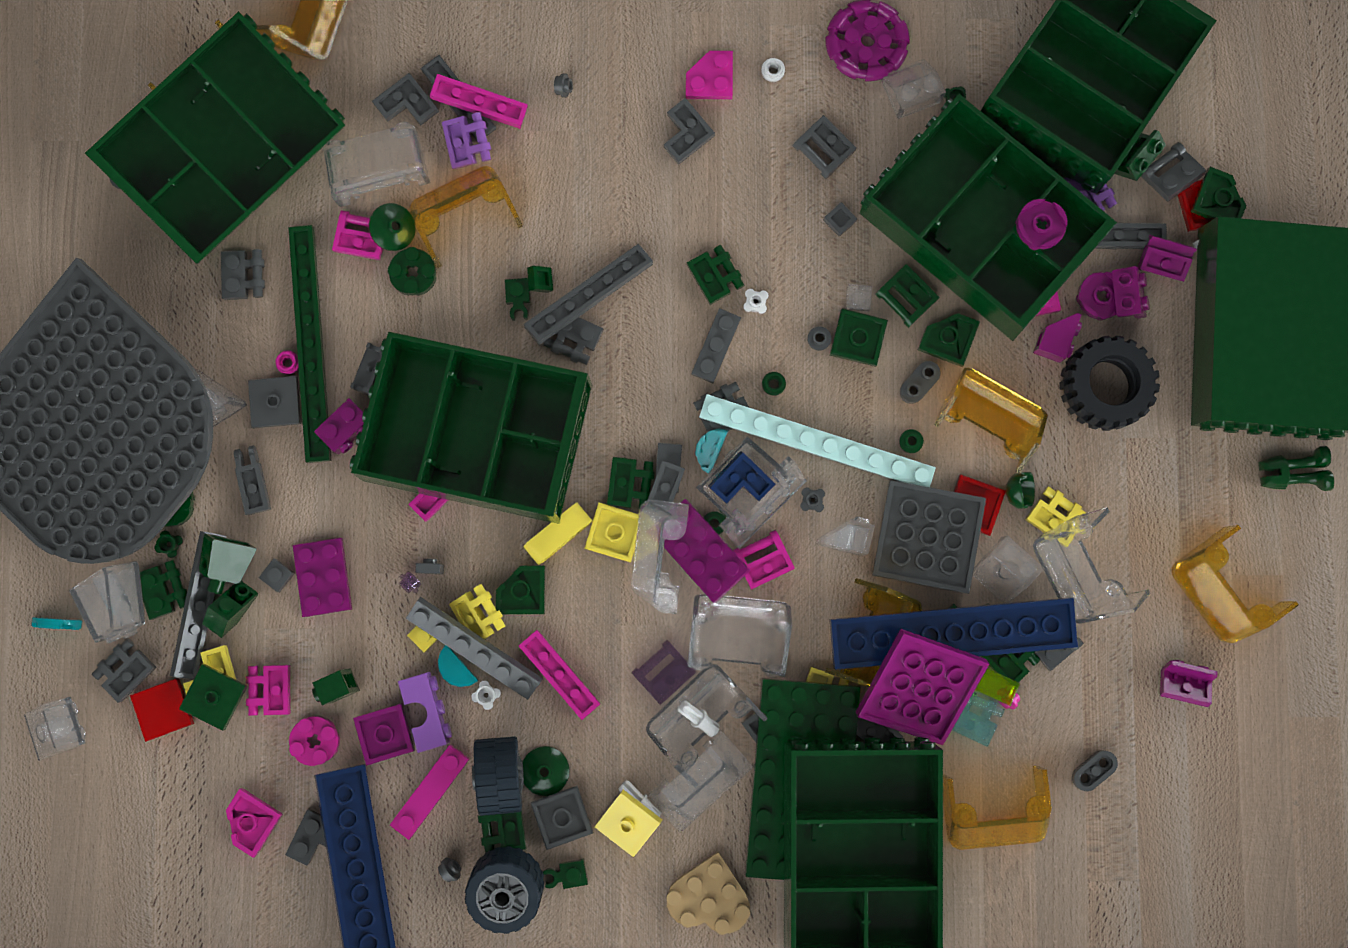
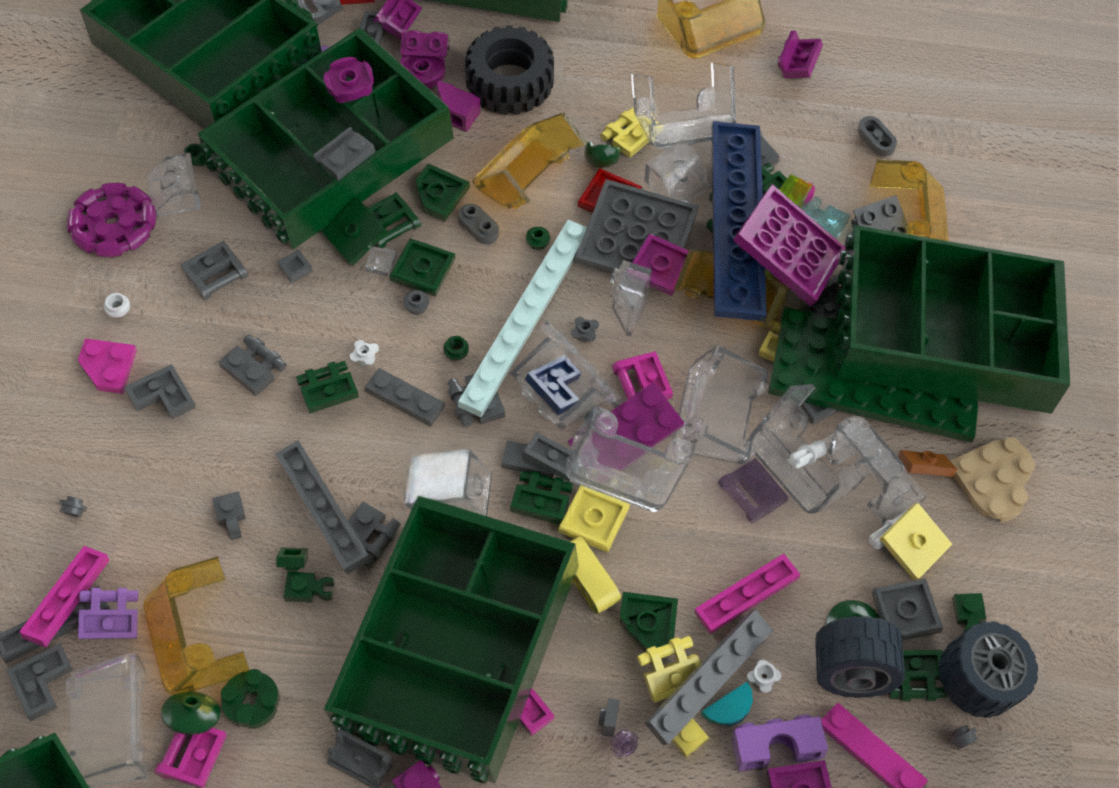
camera: 85 degrees left, 25 degrees down
(580, 216) = (230, 511): none -> dark grey plate
(624, 400) = (450, 478): none -> clear slope
(708, 831) = (927, 463): none -> dark orange plate
(709, 448) = (515, 413): teal tile -> none
(723, 200) = (247, 370): none -> dark grey plate
(886, 266) = (354, 231): none -> dark green plate
(889, 562) = (664, 260): none -> magenta plate
(949, 237) = (344, 153): none -> dark grey plate
(979, 780) = (881, 215): none -> dark grey hinge

